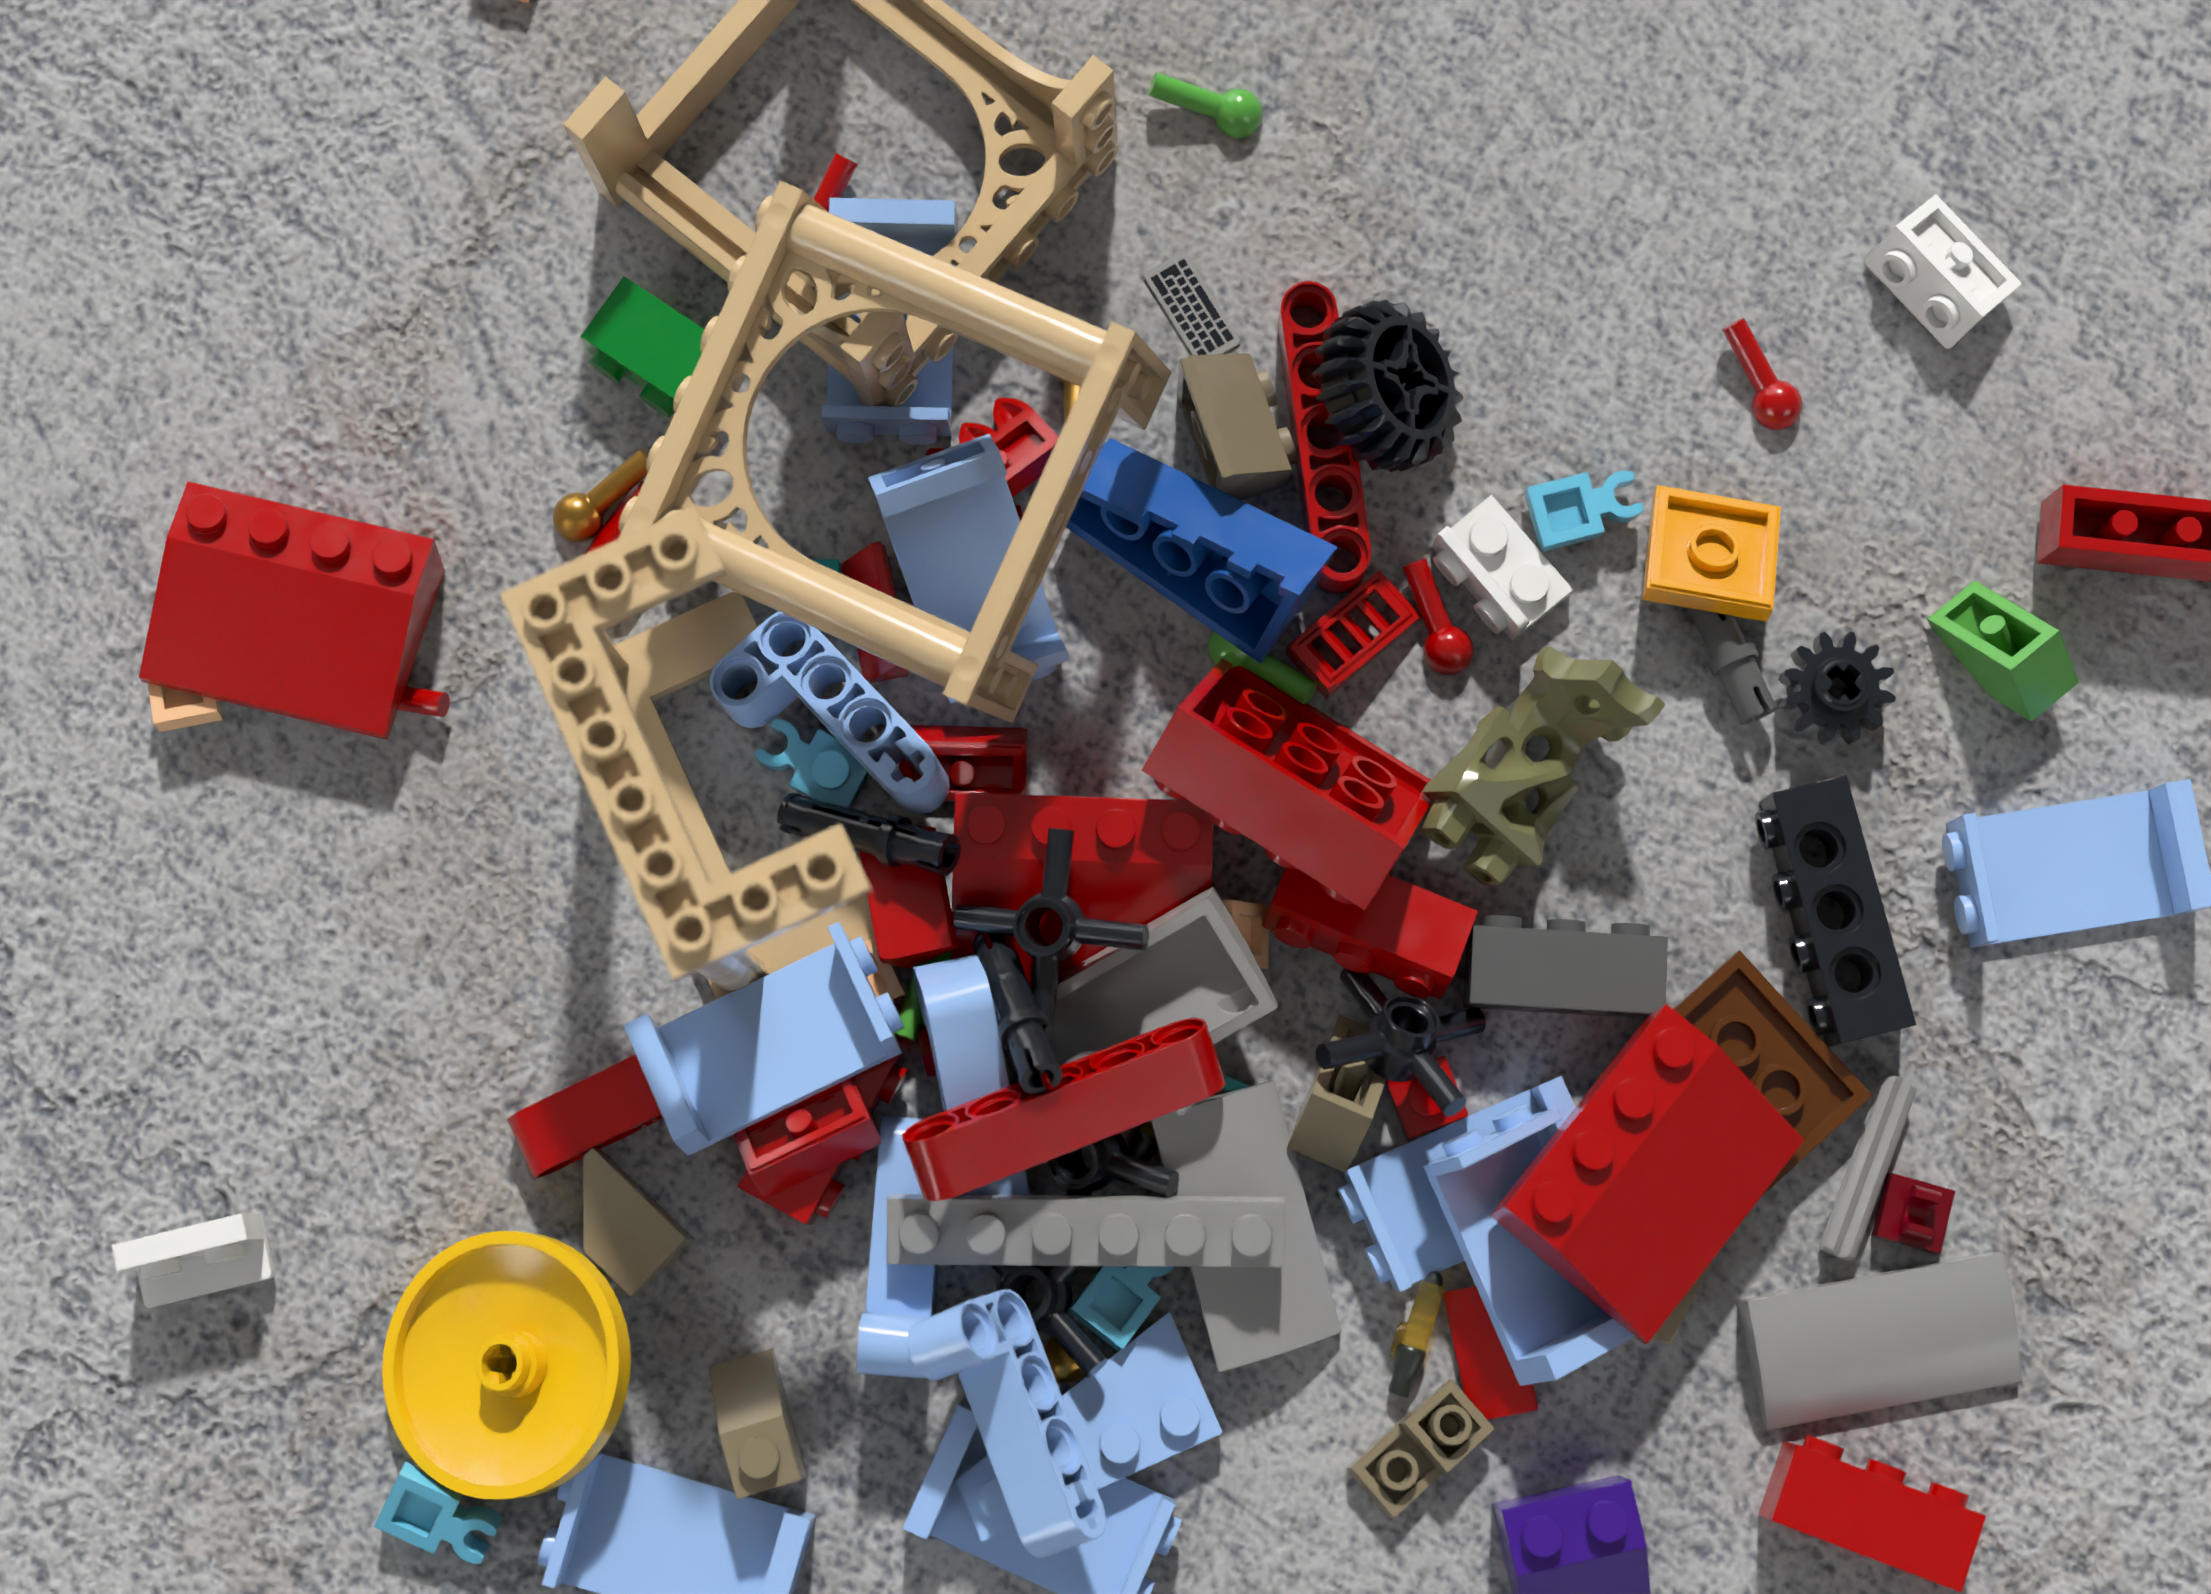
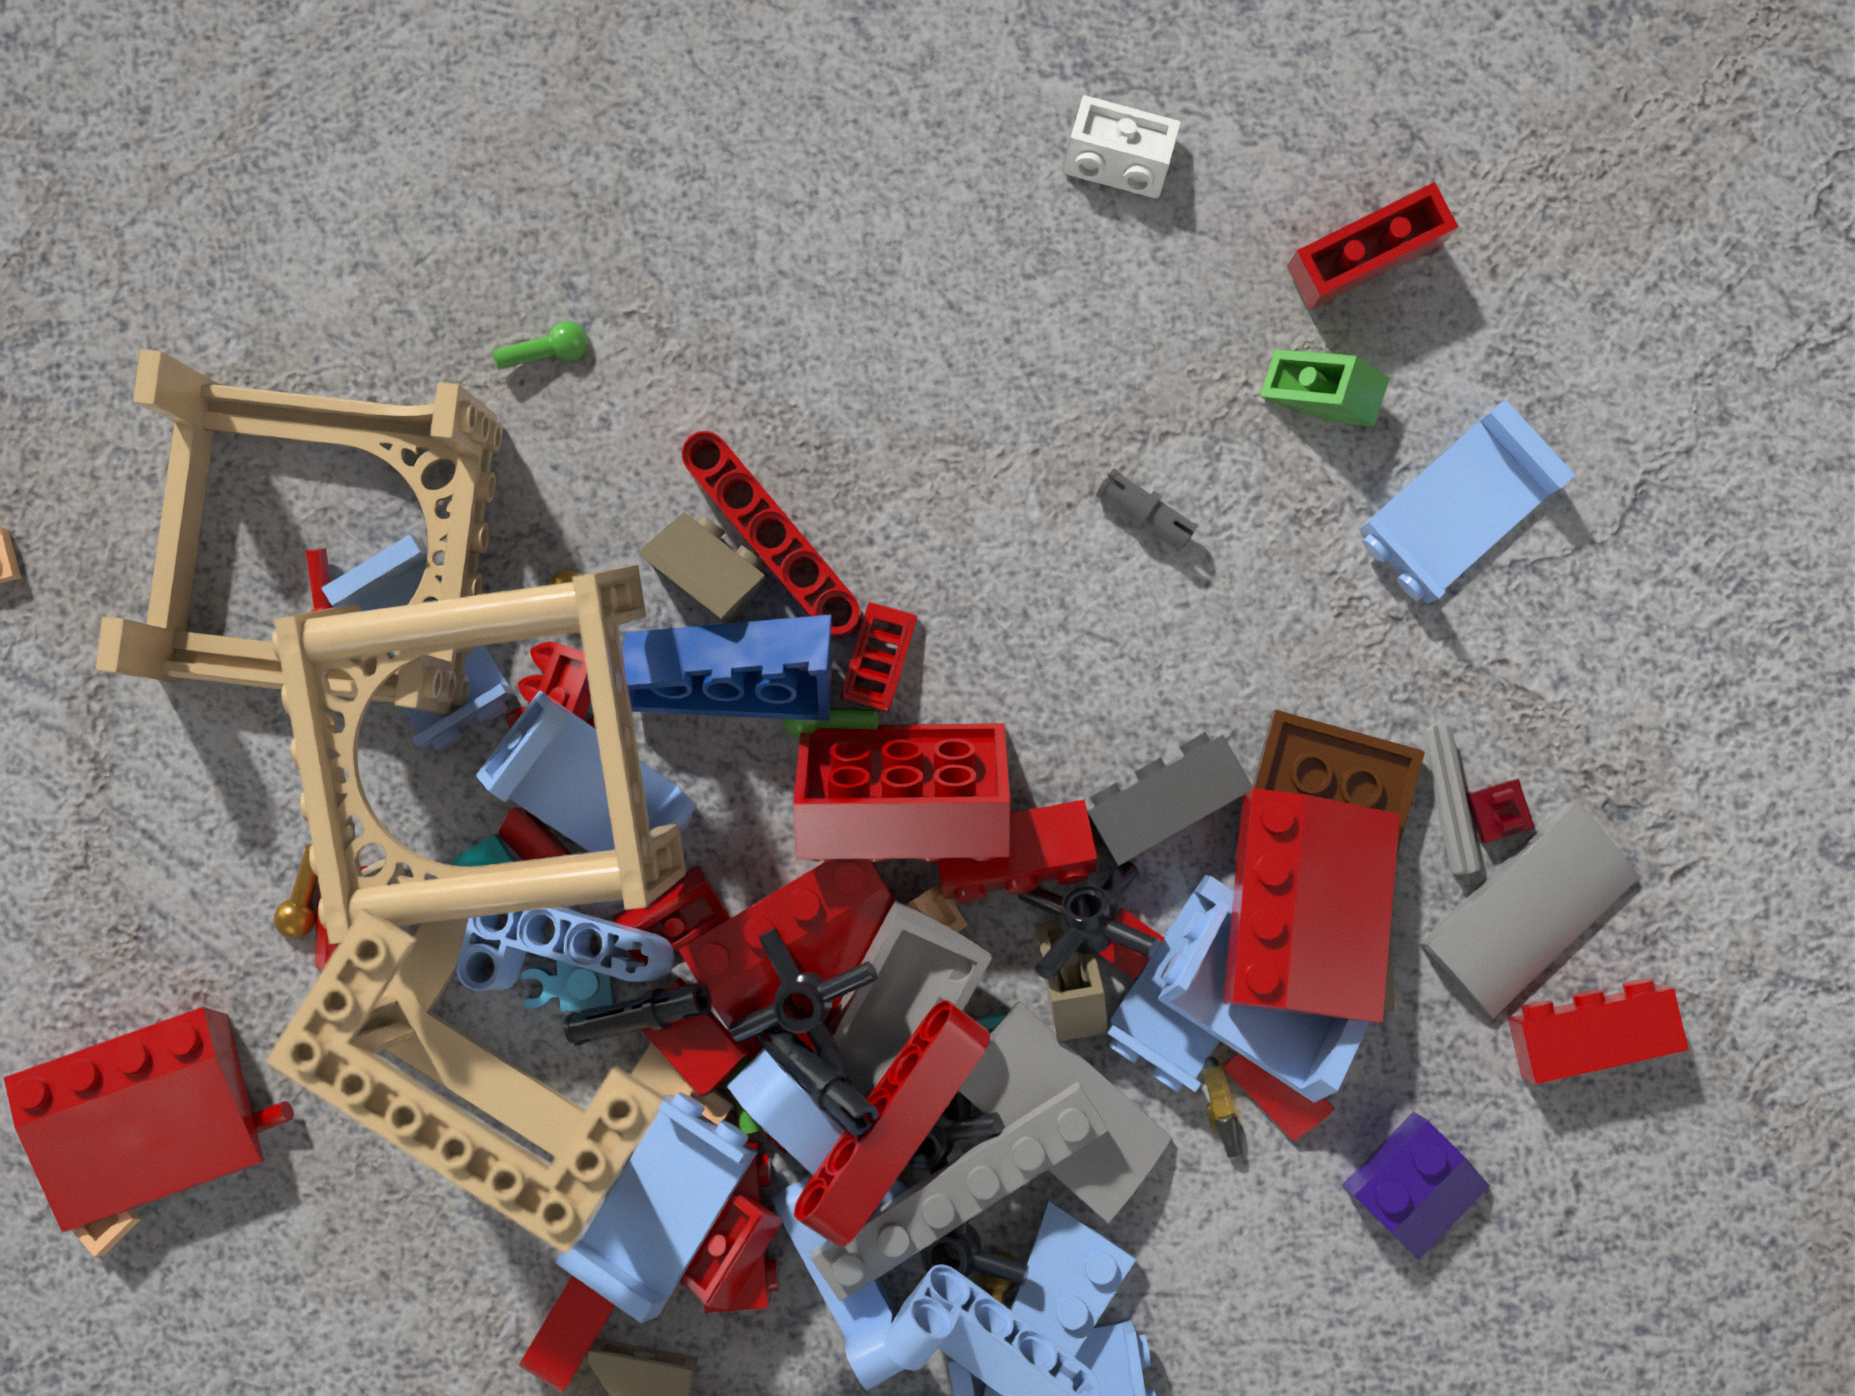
camera: 30 degrees left, 5 degrees up
(643, 342) = (254, 770): green brick -> none
(1117, 1301) = (1010, 1221): medium azure plate -> none
(1191, 306) = (624, 499): sticker -> none
(1387, 386) = (793, 474): black gear -> none
(1420, 1448) = (1272, 1181): dark tan slope -> none
(1447, 647) = (947, 624): red bar -> none
(1491, 777) = (1035, 697): olive hips -> none
(1499, 569) = (949, 548): white bracket -> none
(1571, 510) = (973, 476): medium azure plate -> none
(1712, 553) = (1087, 446): light orange tile -> none
(1776, 402) = (1064, 310): red bar -> none
(1830, 815) = (1390, 683): black brick -> none
(1857, 698) = (1213, 495): black gear -> none

